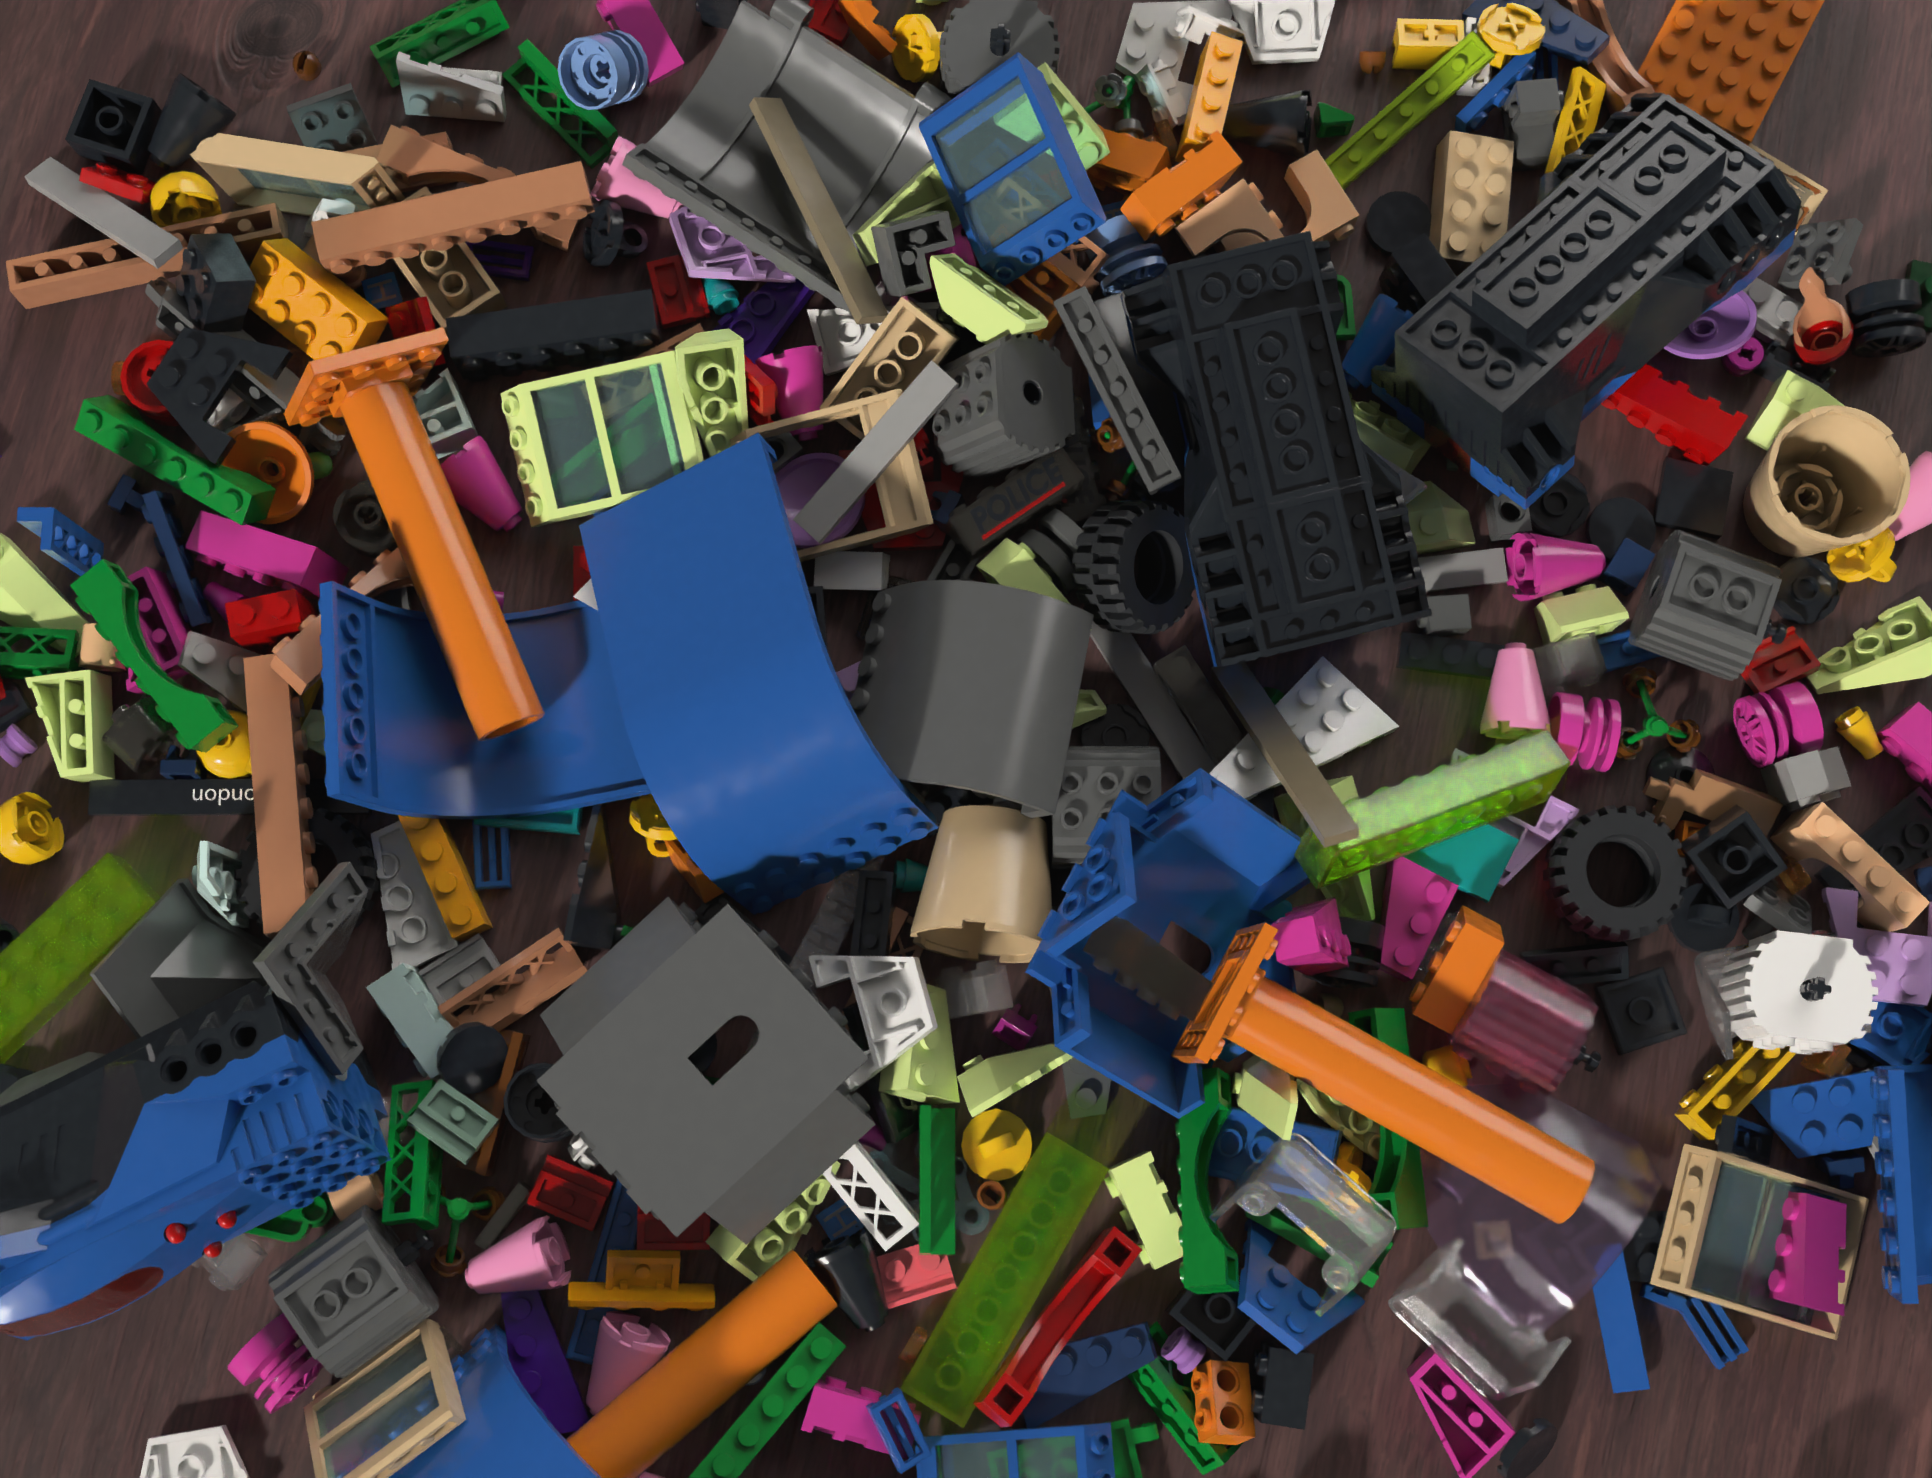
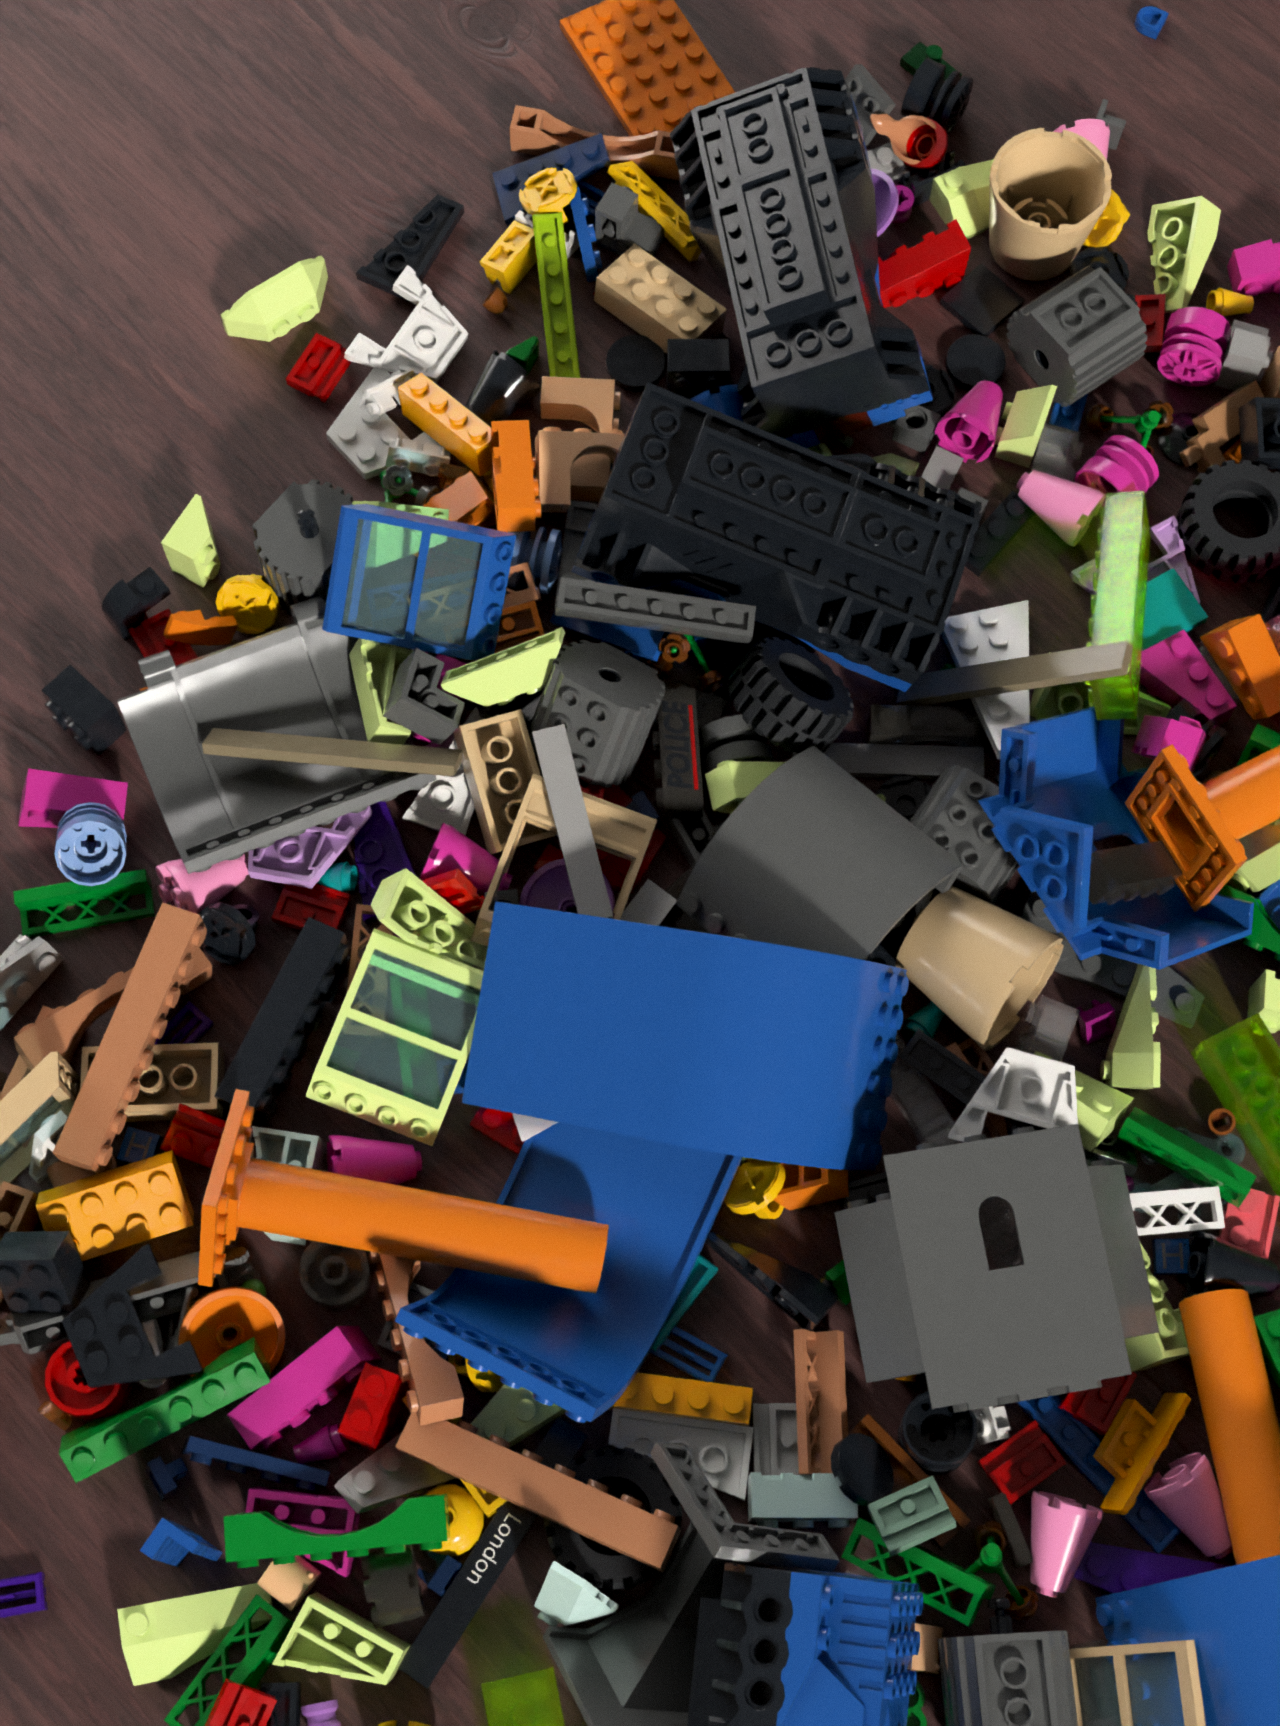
camera: 55 degrees left, 10 degrees down
(996, 1144) = (1183, 1096): yellow tile -> none
(1626, 567) = (1009, 371): dark blue panel -> none

